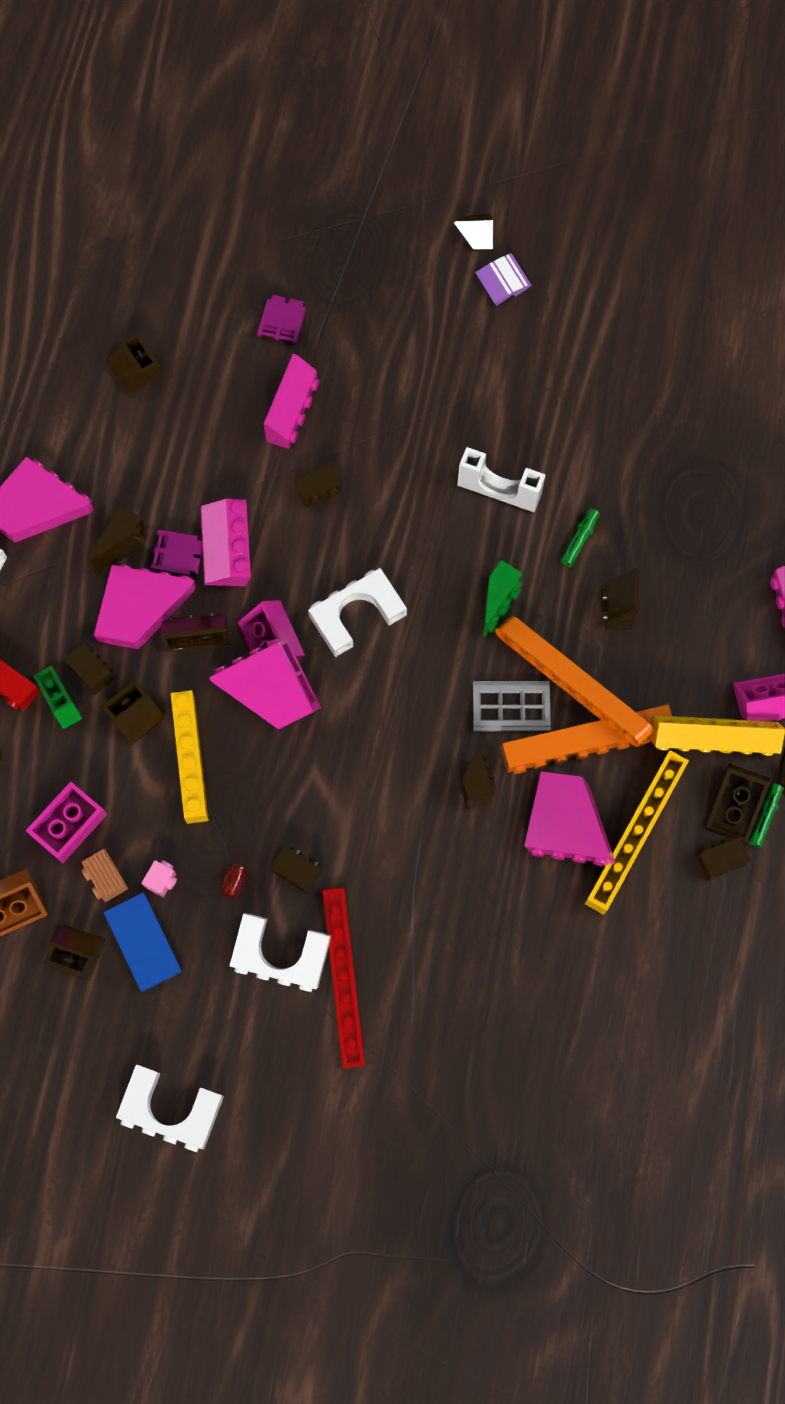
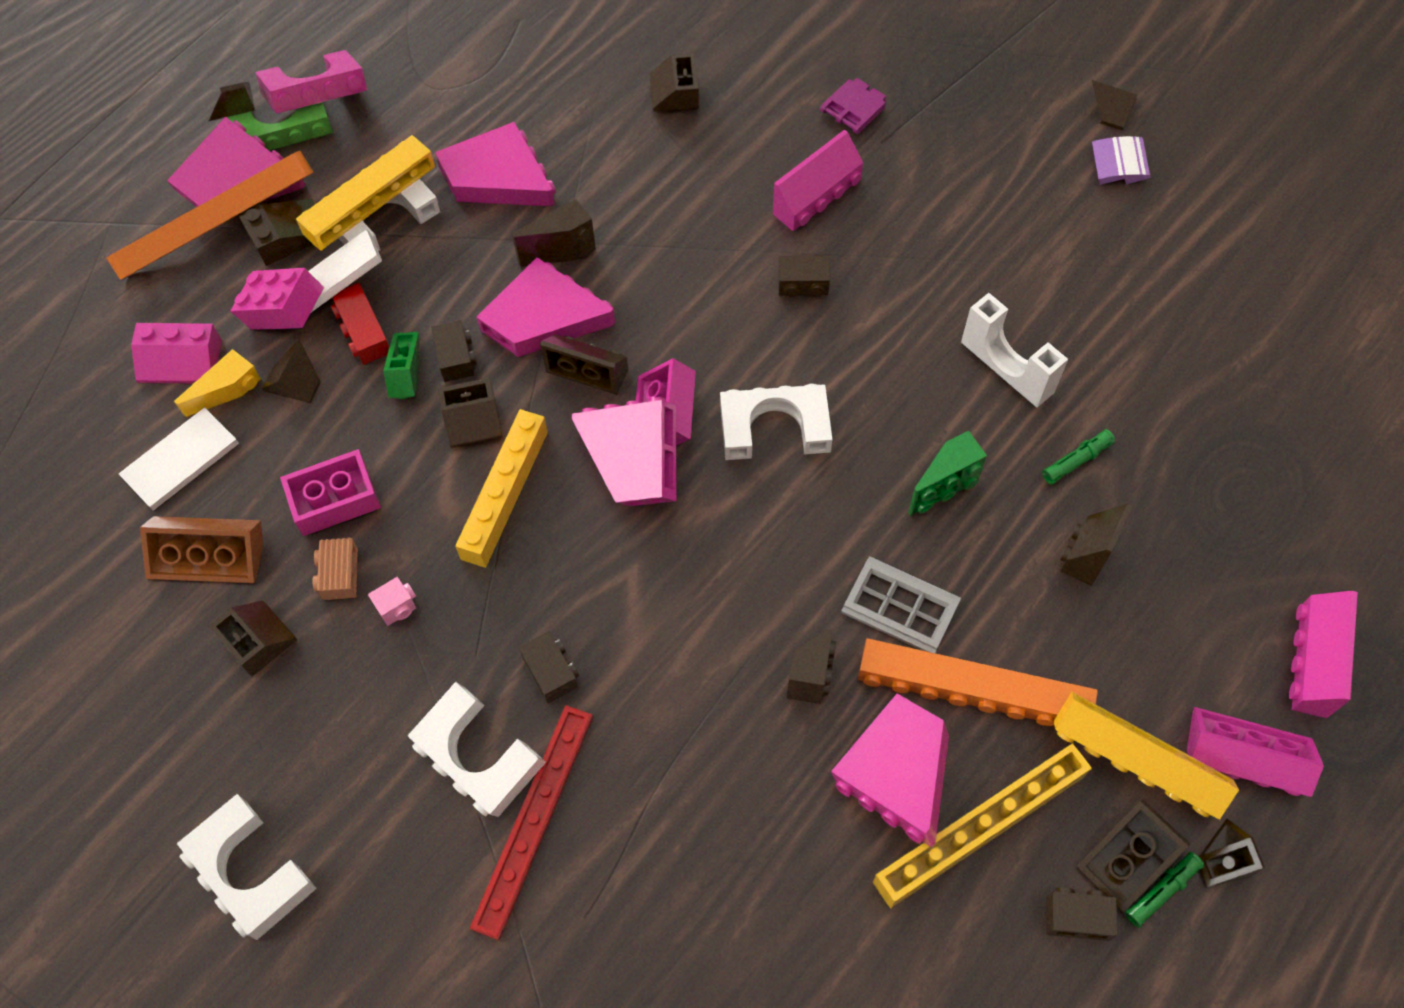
camera: 30 degrees right, 10 degrees down
(142, 942) = (334, 663): blue tile -> none
(177, 553) = (614, 280): magenta plate -> none
(225, 543) = (669, 289): dark pink slope -> none
(234, 881) = (471, 645): clear red brick -> none
(574, 681) = (993, 611): orange beam -> none

